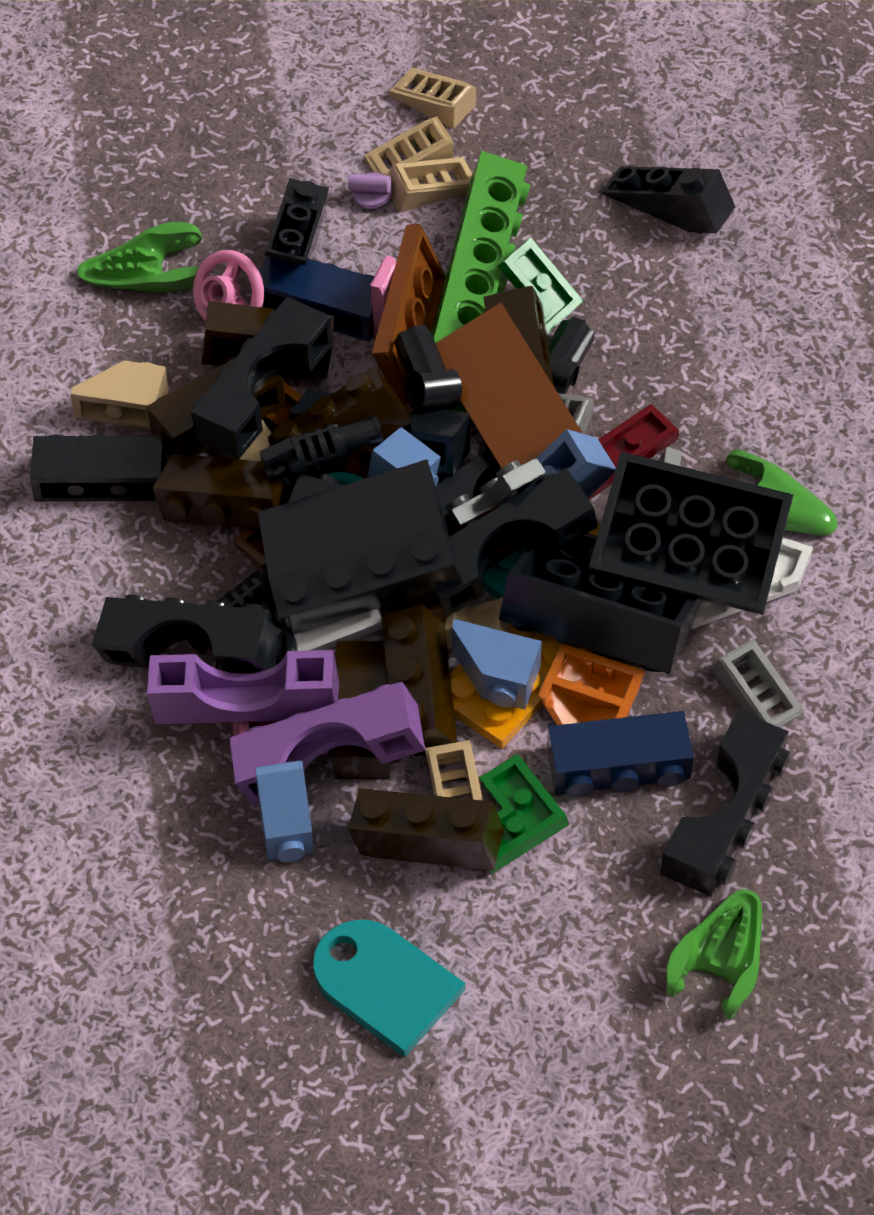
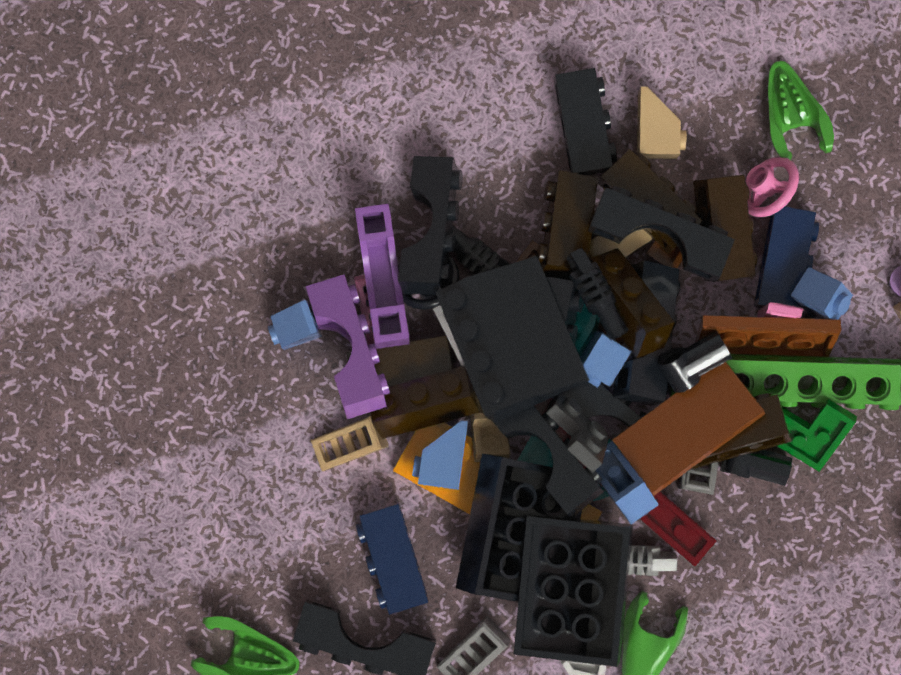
camera: 85 degrees right, 30 degrees up
(298, 222) = (837, 229): black slope -> none
(371, 240) = (822, 295): none -> medium blue slope
(386, 984) = (186, 421): teal tile -> none
(426, 829) = (298, 429): dark brown brick -> none
(525, 809) = (330, 498): green plate -> none
(588, 687) = (440, 529): orange slope -> none

